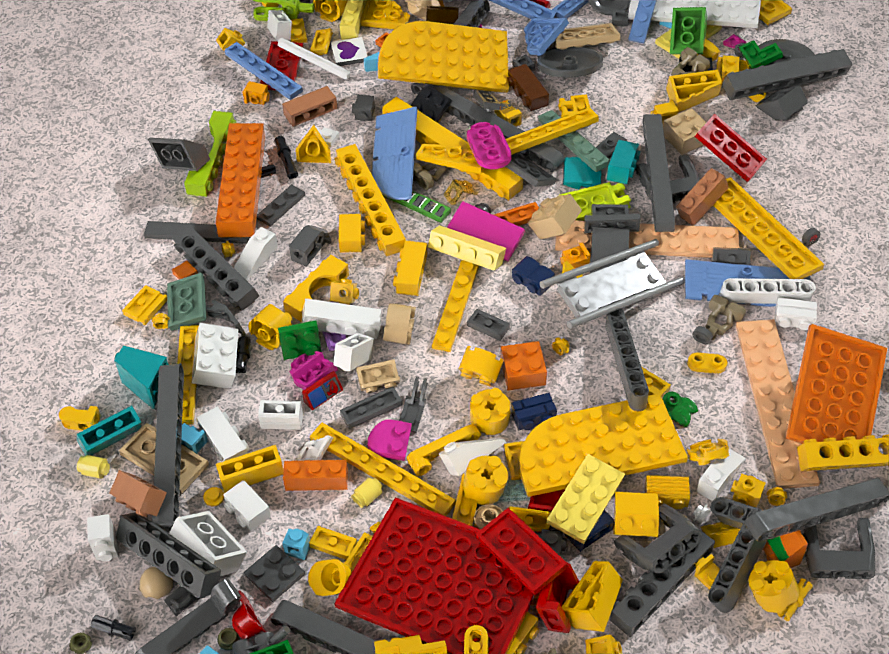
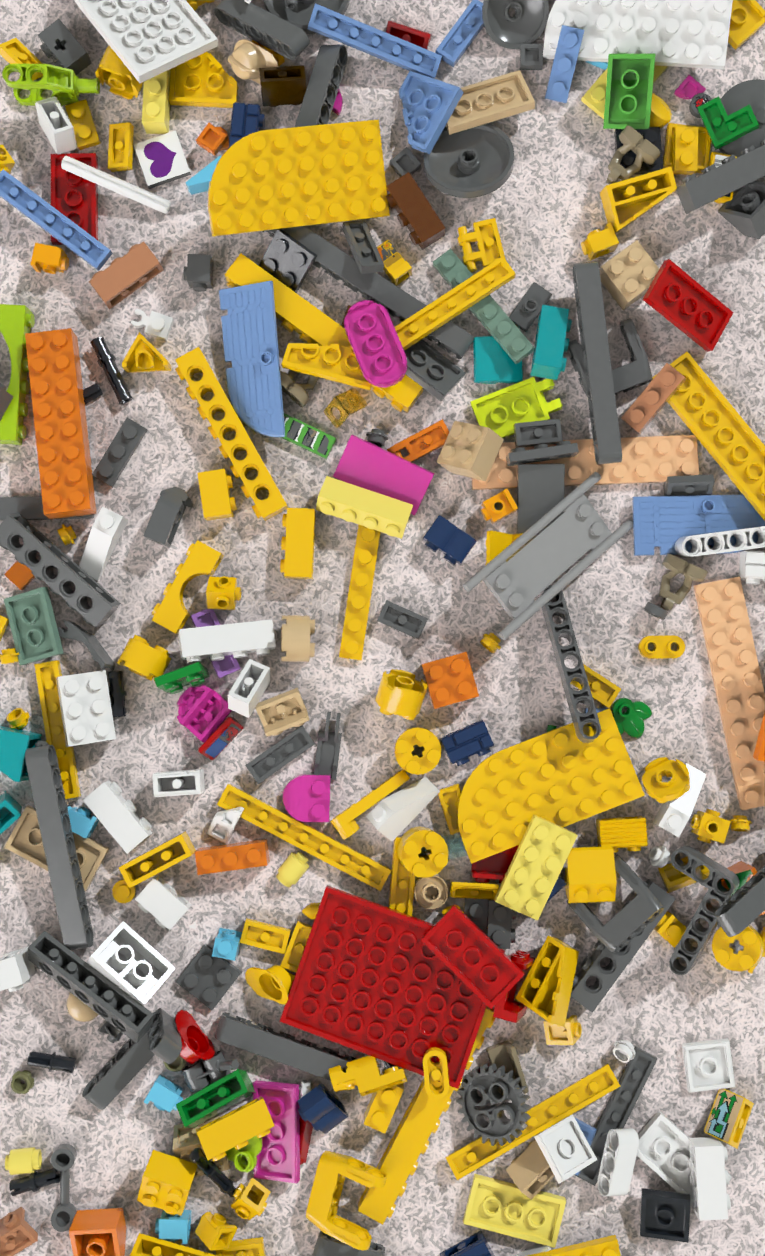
camera: 10 degrees left, 35 degrees up
(137, 494) = (39, 914): nougat brick -> none

